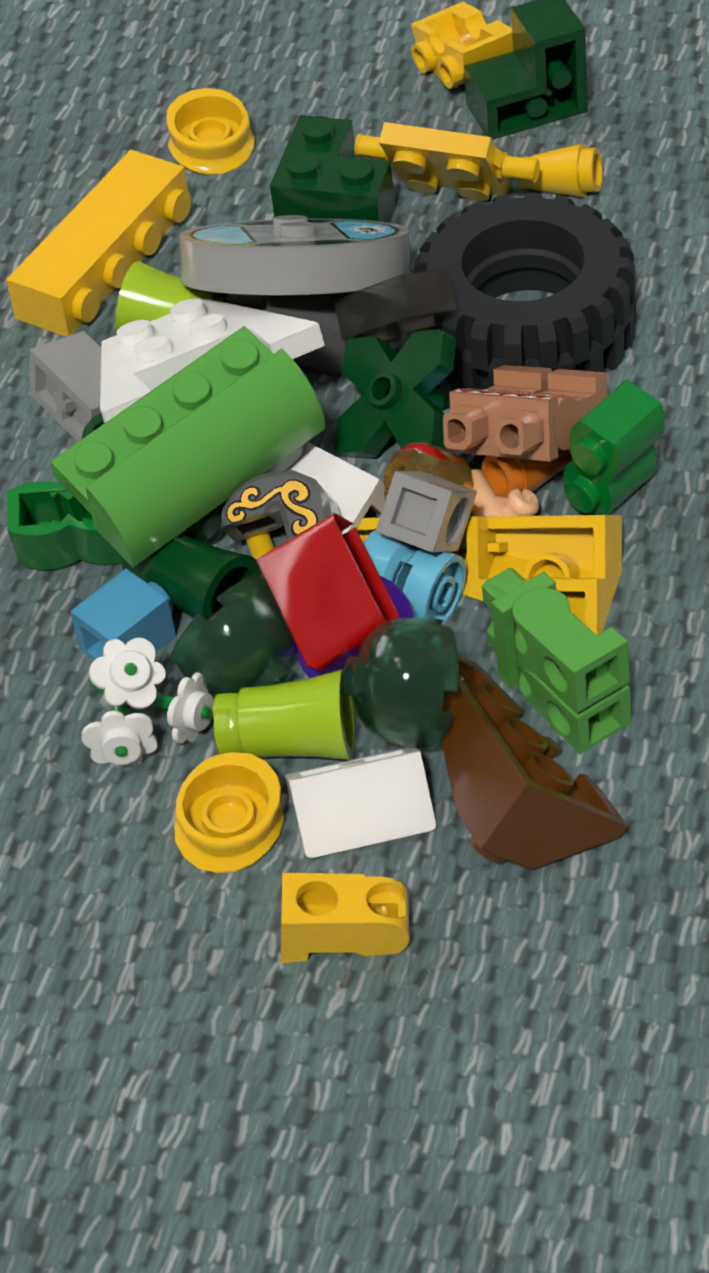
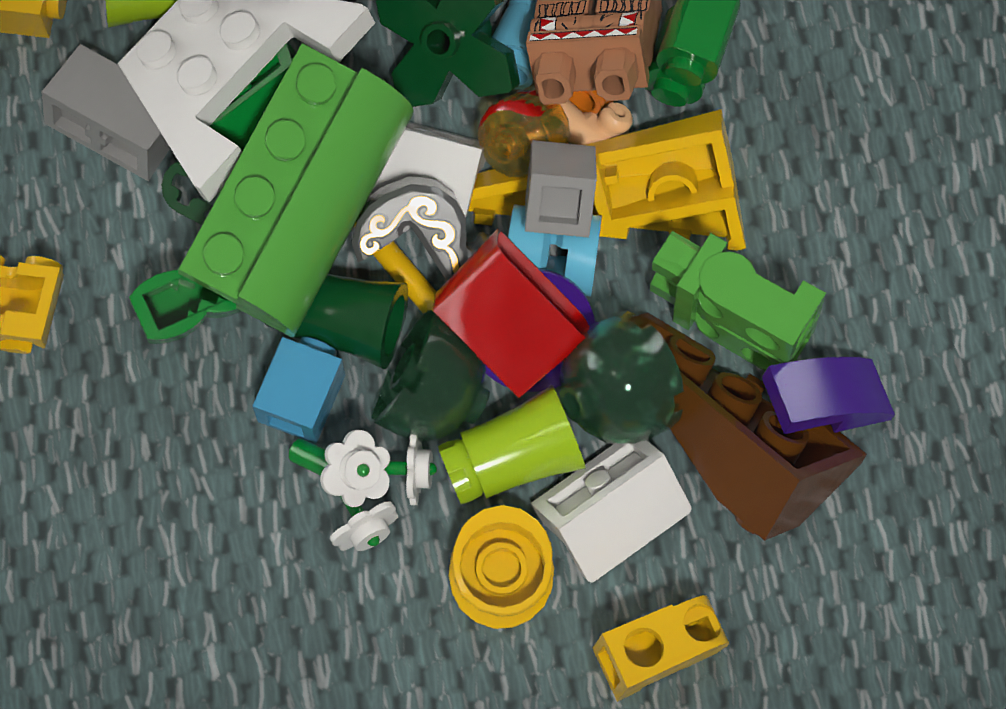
camera: 30 degrees left, 25 degrees up
(598, 748) = (827, 392): none -> dark purple slope

